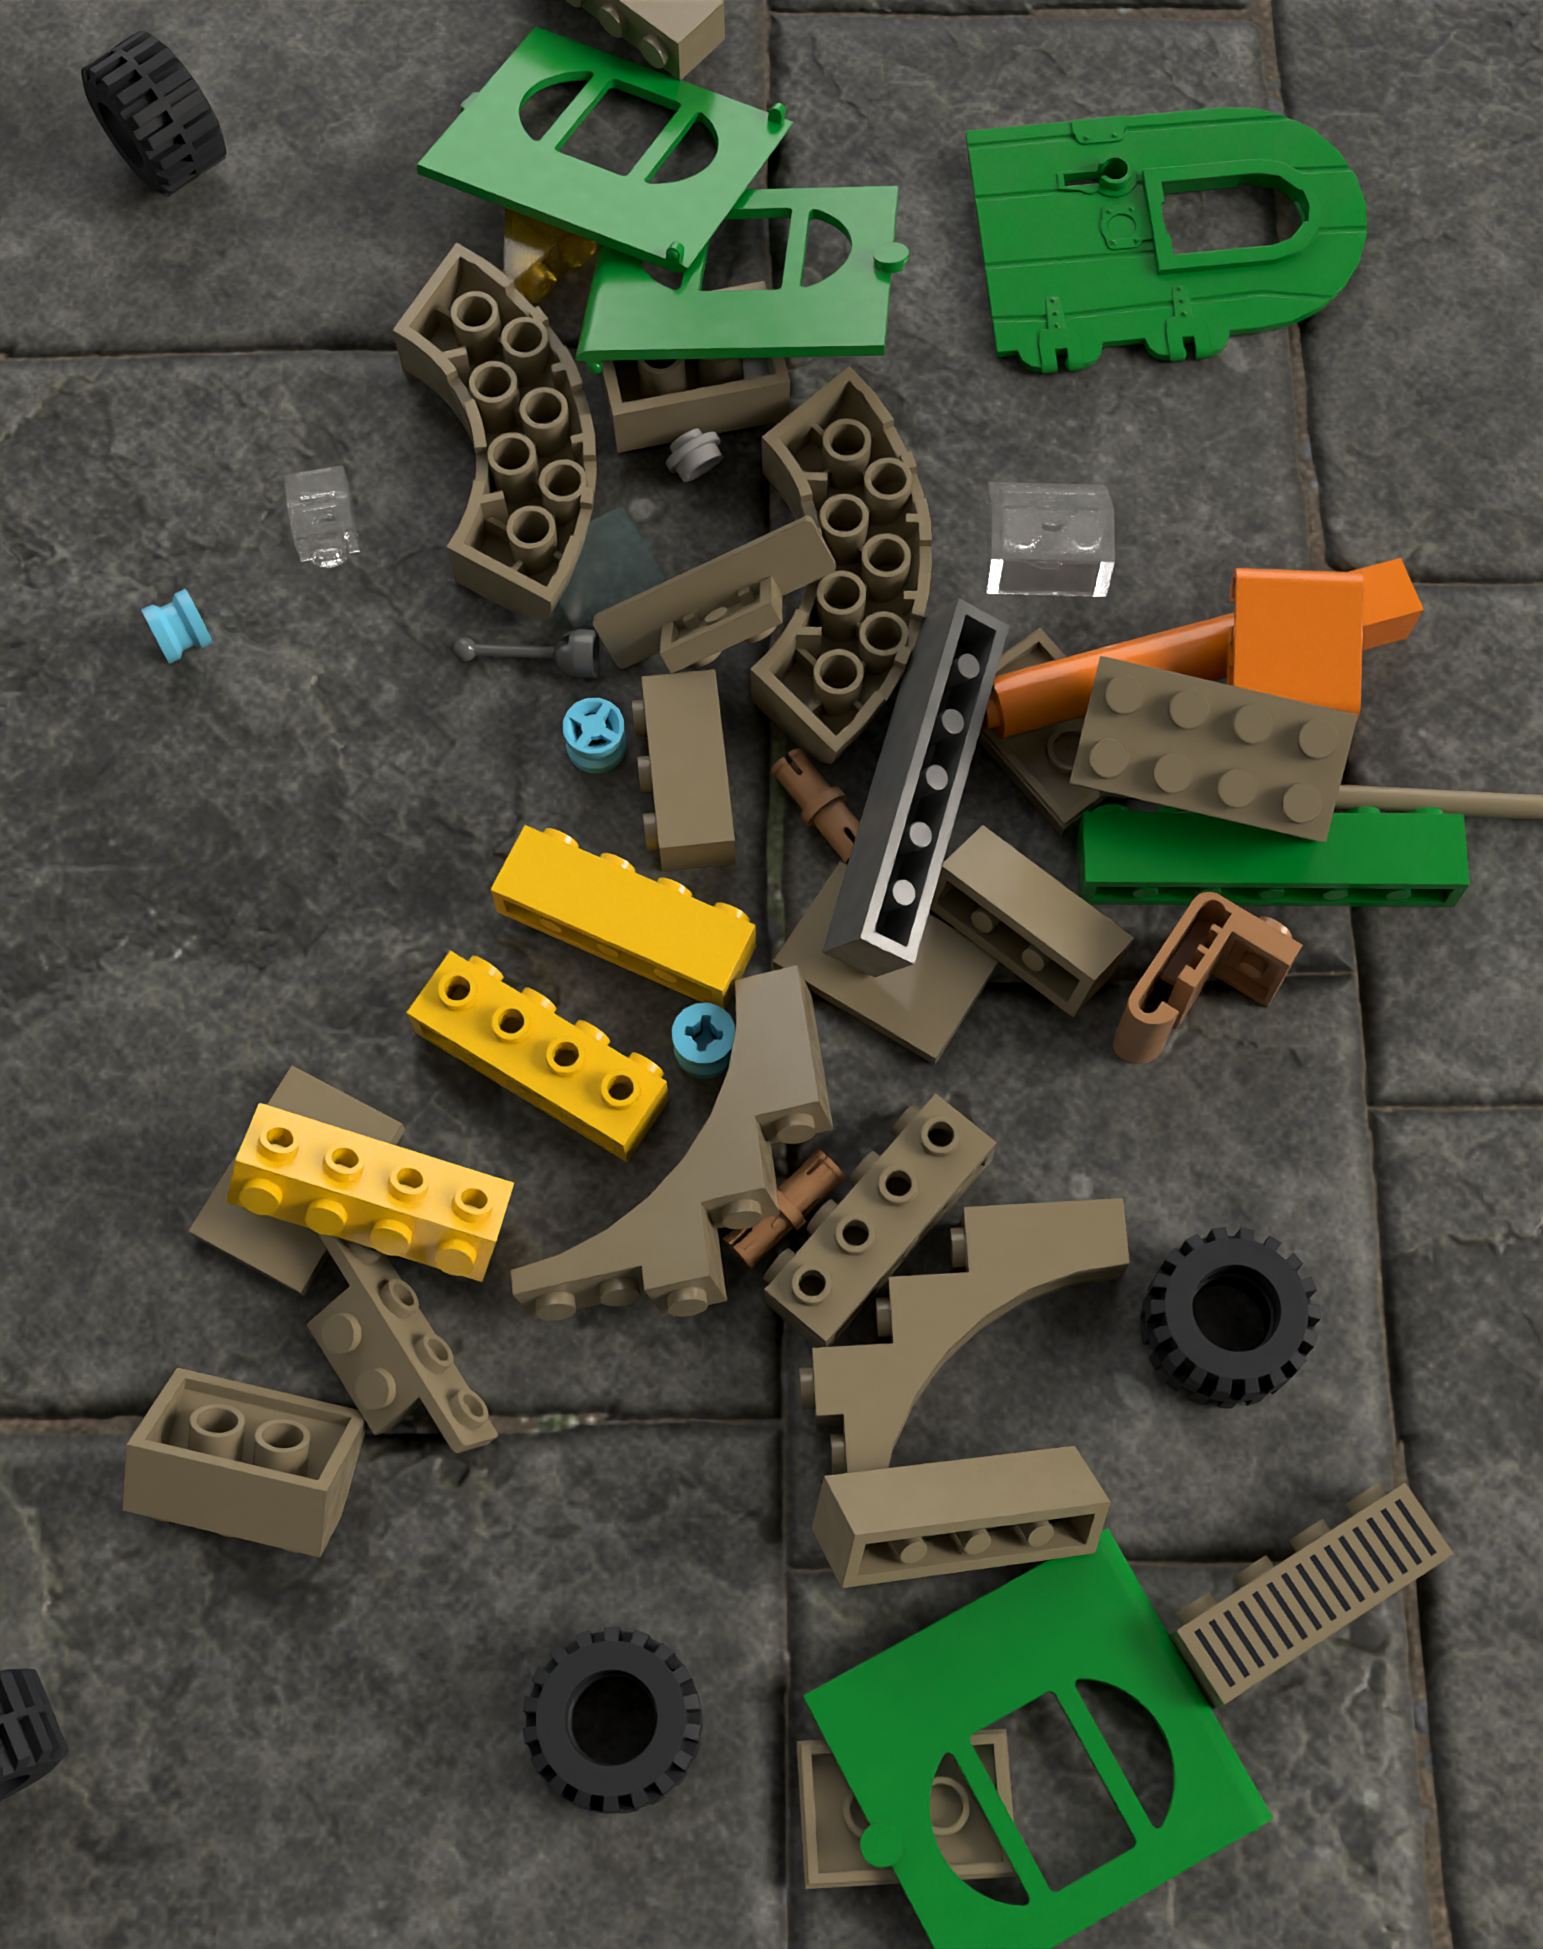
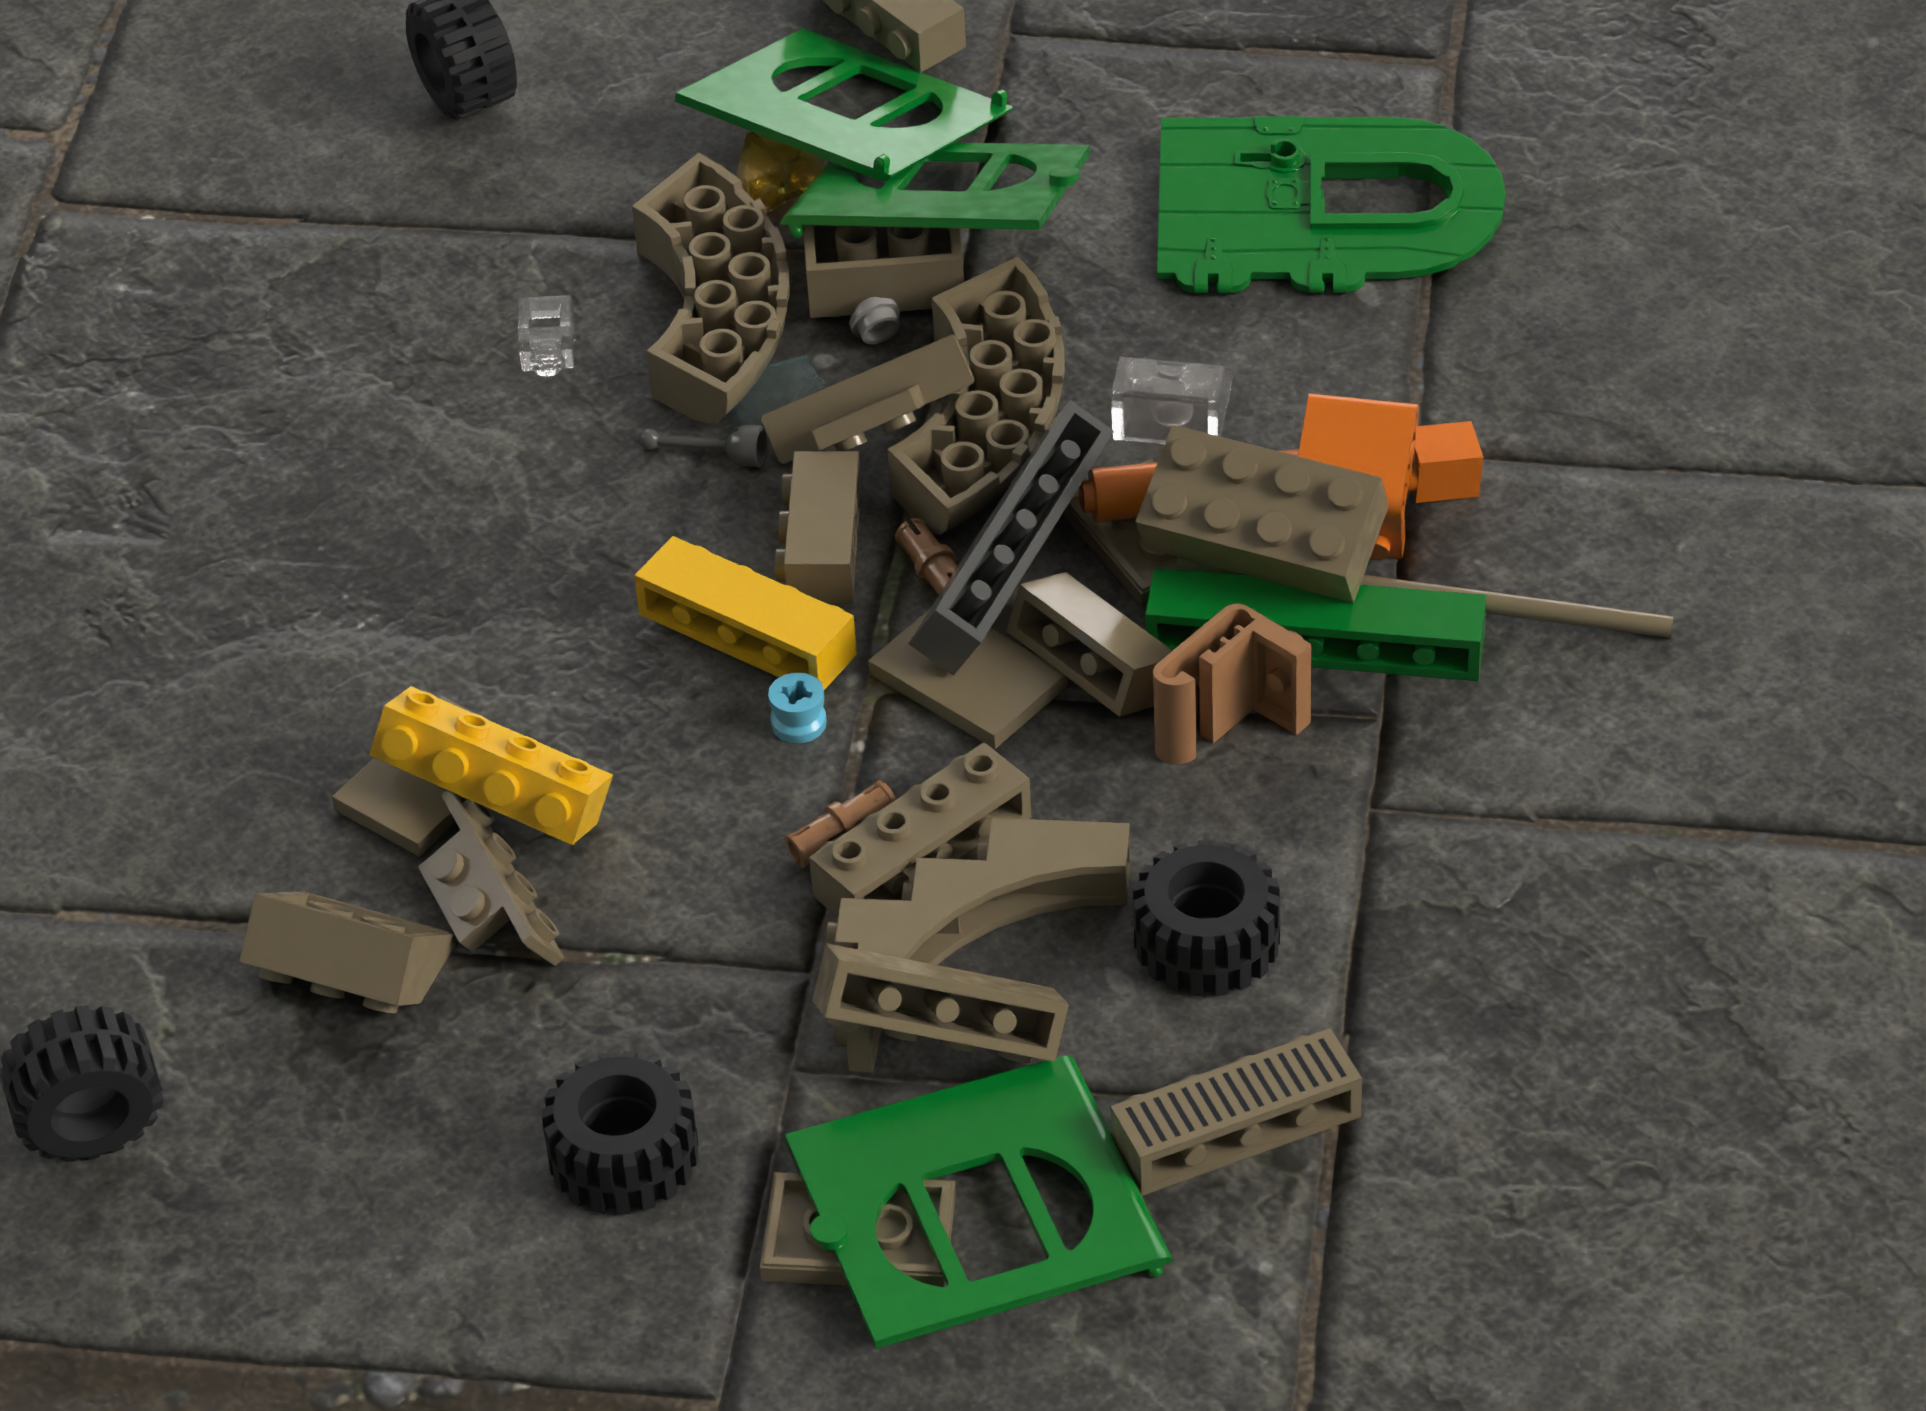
camera: 10 degrees right, 25 degrees down
(177, 626) = (407, 400): medium azure wheel -> none
(539, 1054) = (654, 704): yellow brick -> none
(591, 721) = (748, 500): medium azure wheel -> none
(725, 1179) = (791, 784): dark tan arch -> none

